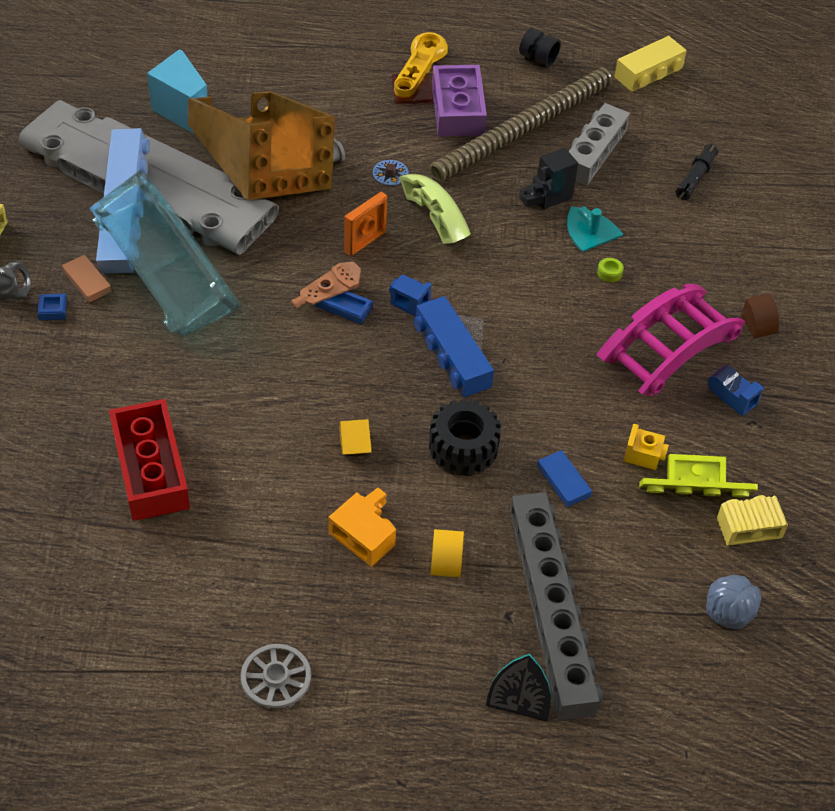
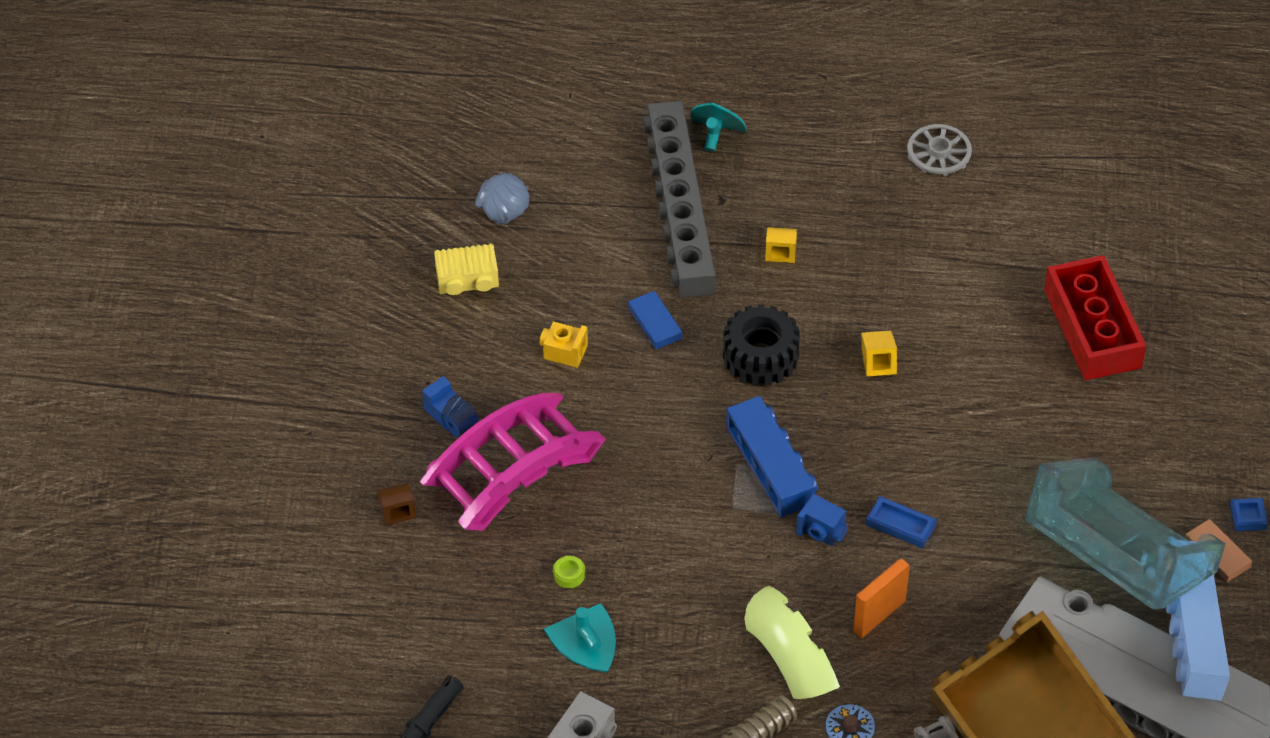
camera: 175 degrees left, 0 degrees up
(341, 279) = (910, 542): nougat piece -> none
(361, 528) = (867, 261): light orange hinge -> none
(554, 180) = (635, 673): black hinge -> none
(697, 473) = (514, 308): neon yellow bracket -> none

